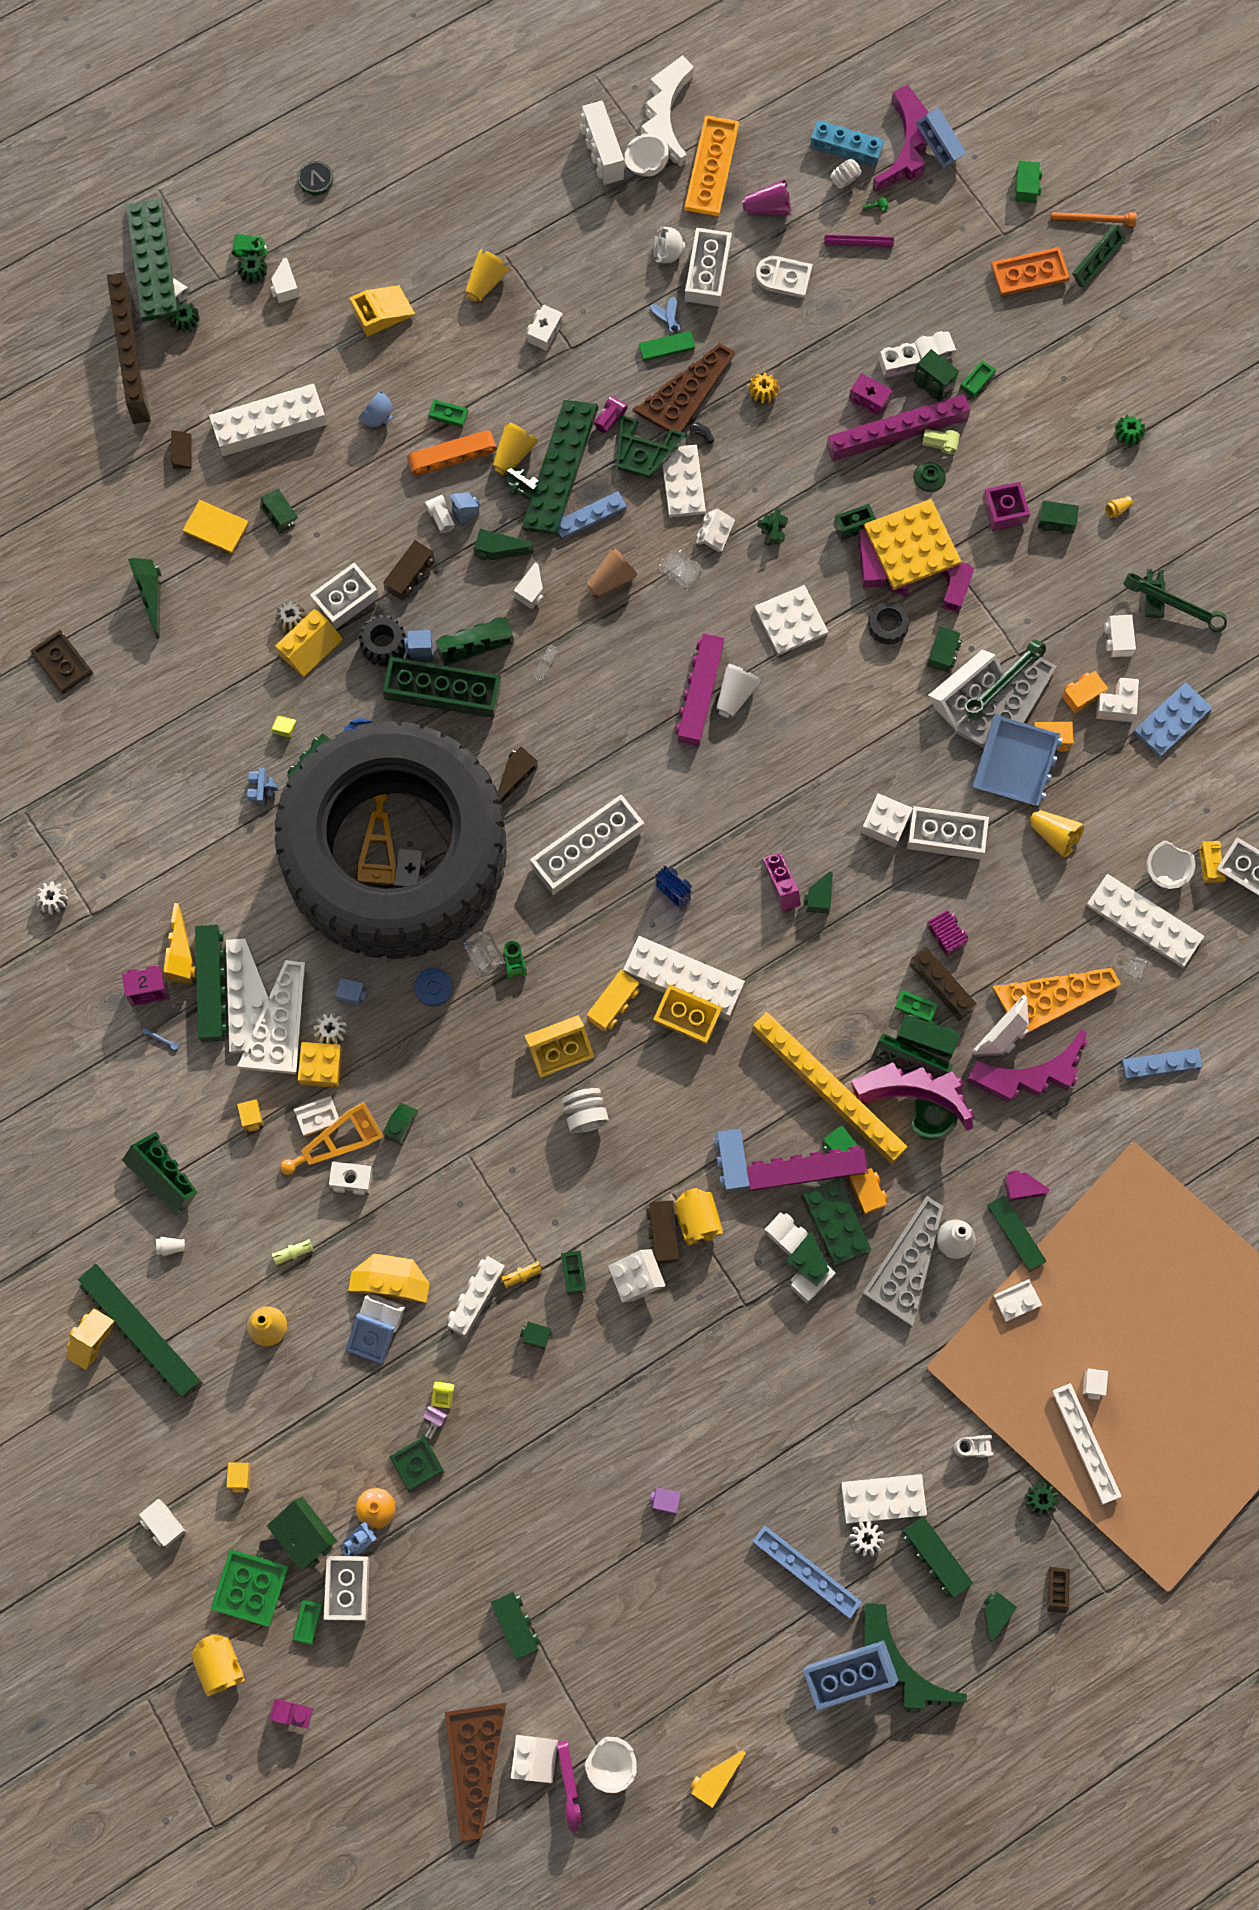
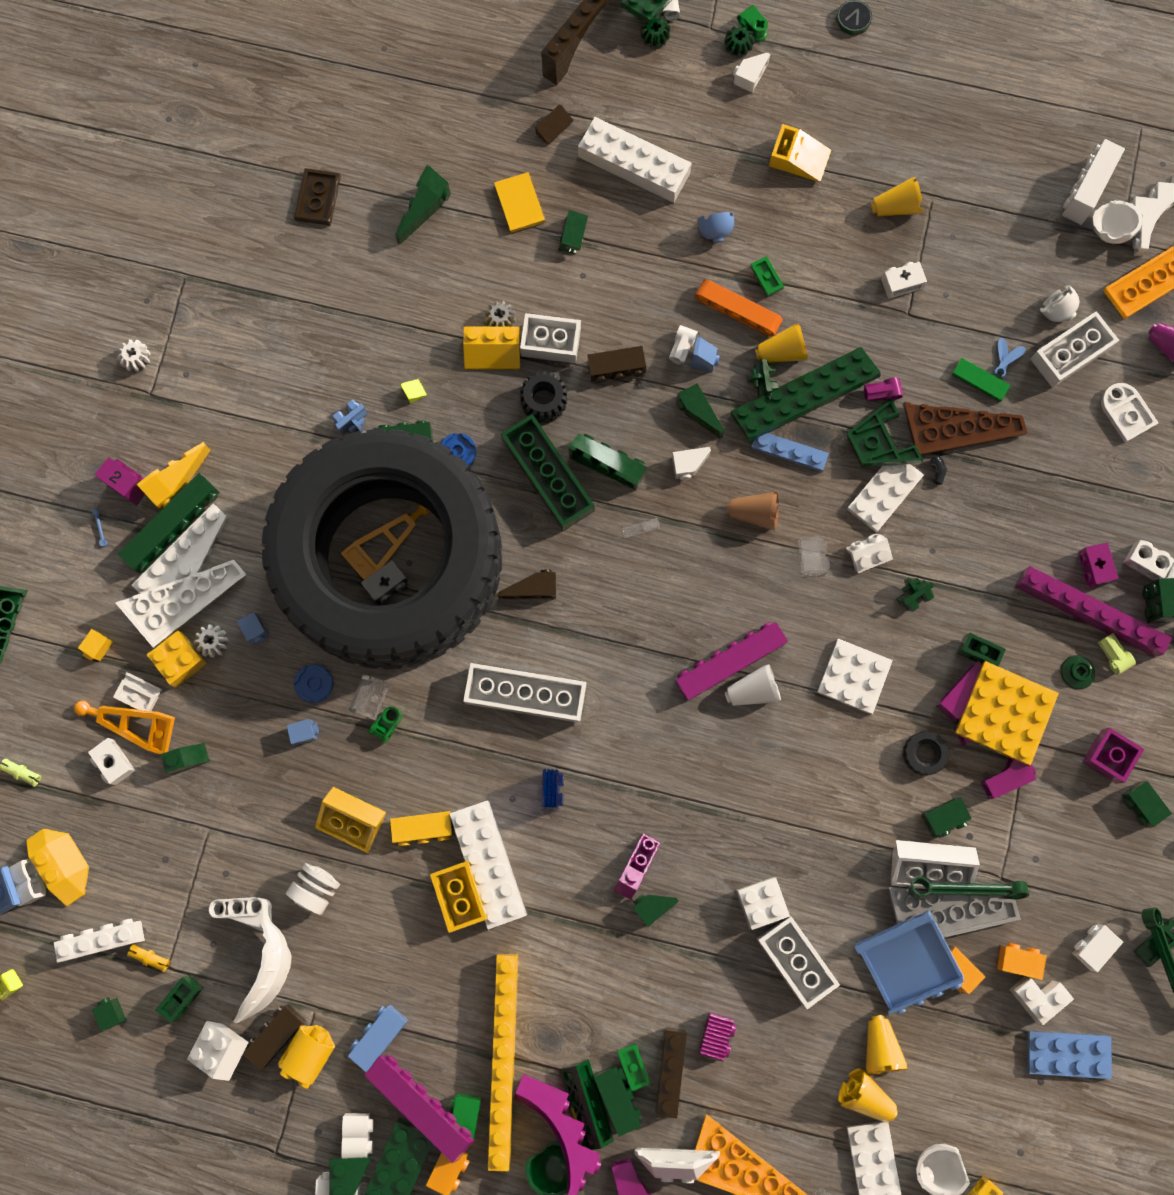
camera: 50 degrees right, 5 degrees up
(419, 646) = (563, 426): medium blue brick -> none
(462, 1023) = (302, 732): none -> medium blue brick
(572, 1167) = (275, 953): none -> white piece
(756, 387) = (1017, 487): yellow gear -> none
(1078, 870) = (866, 1097): none -> yellow cone

